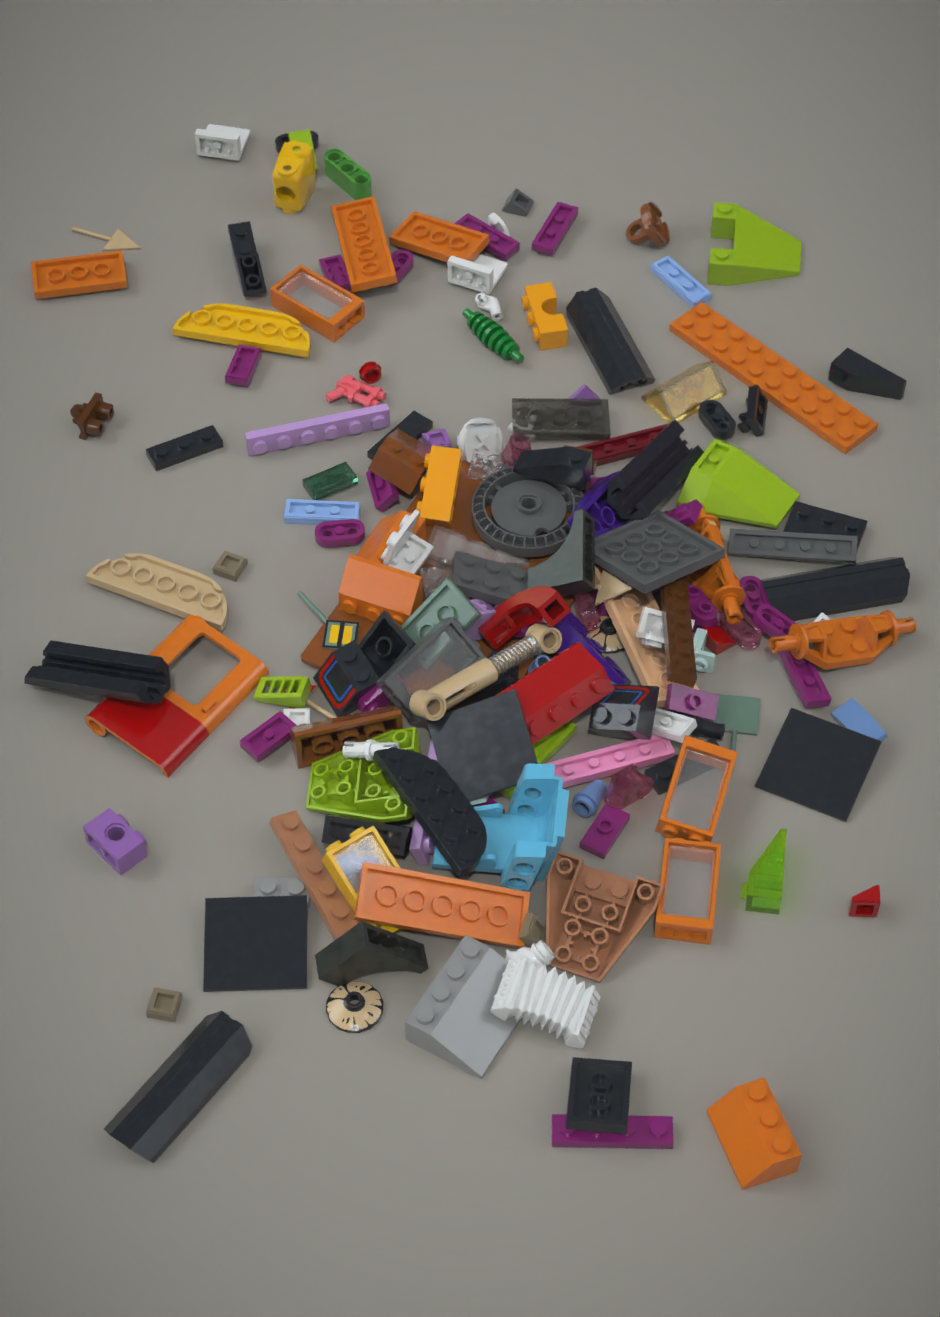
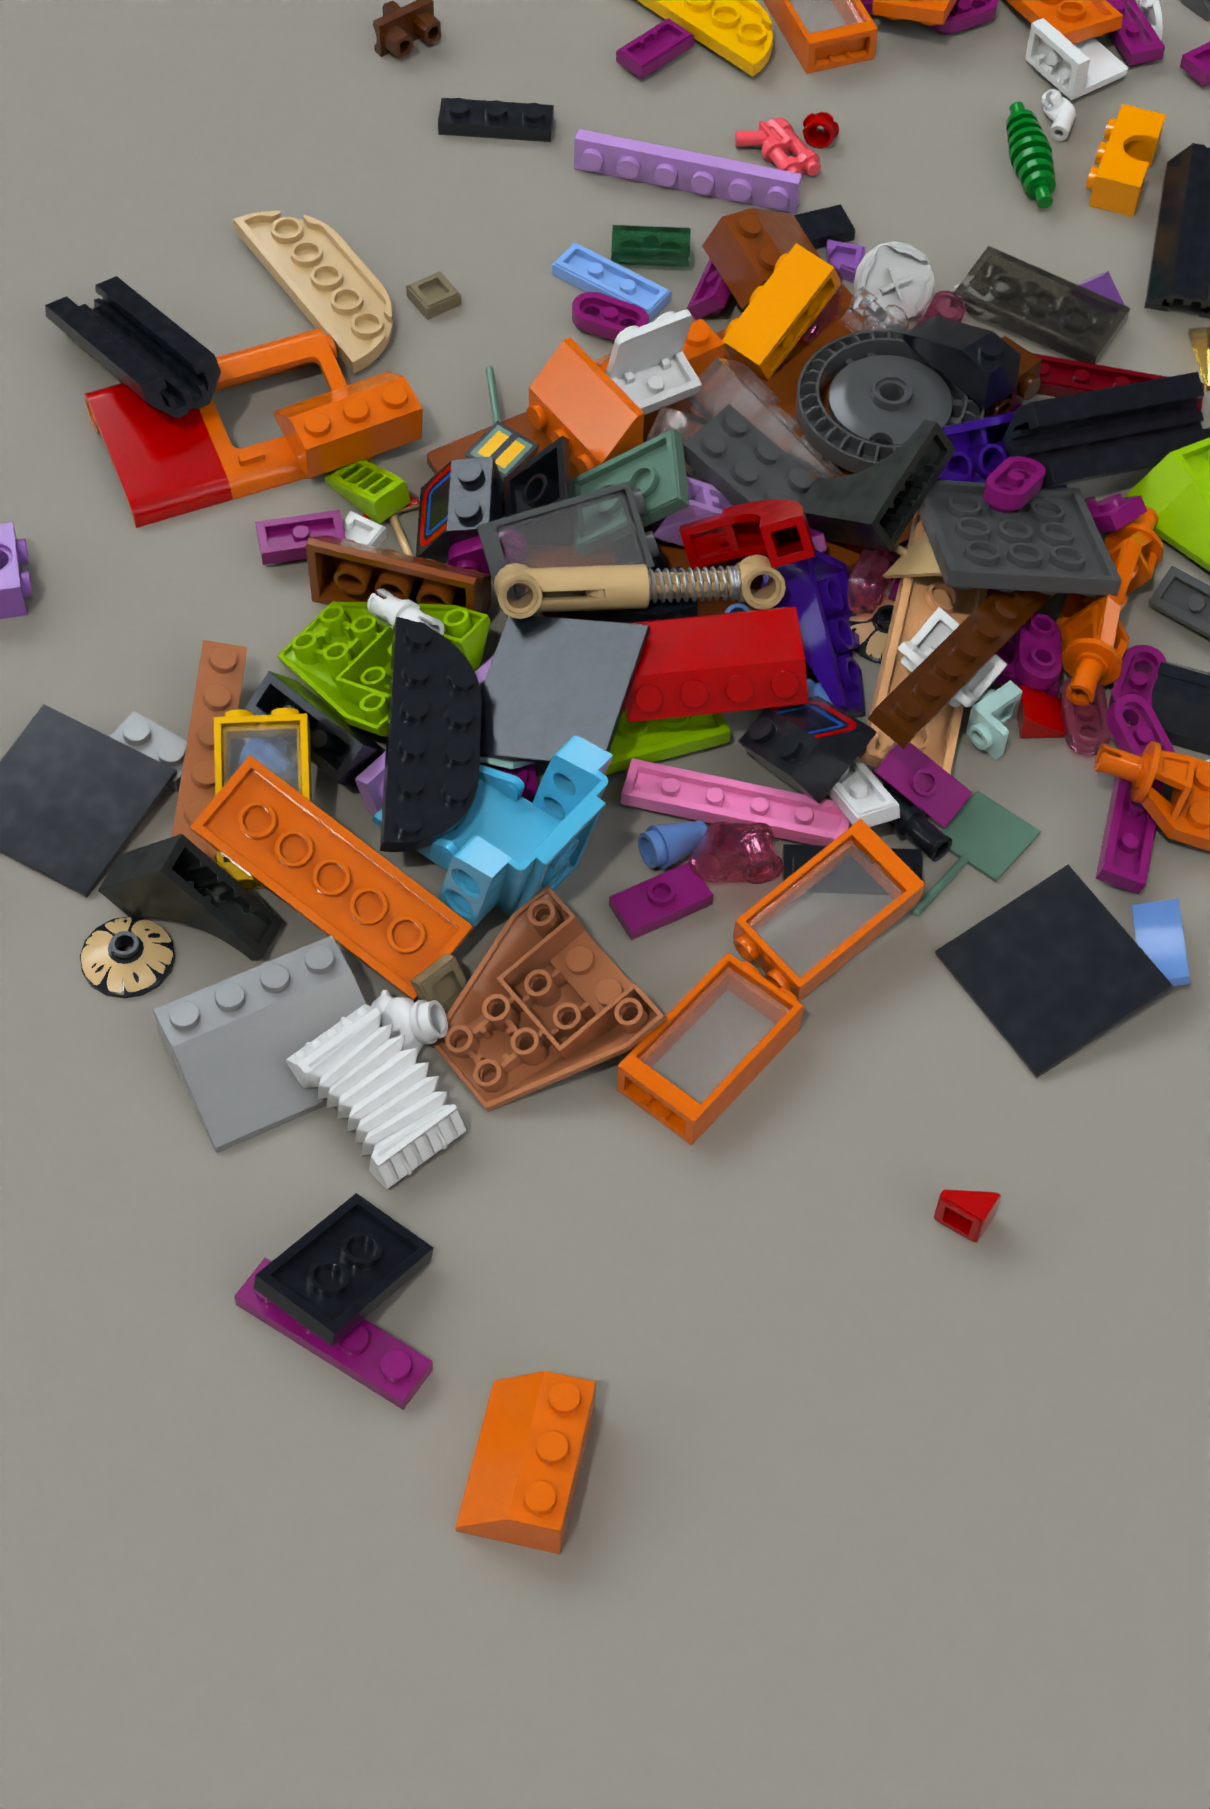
camera: 30 degrees right, 5 degrees up
(251, 658) = (351, 423): none -> orange slope
(632, 523) = (1013, 483): none -> magenta plate
(765, 878) = (844, 1090): clear neon green slope -> none

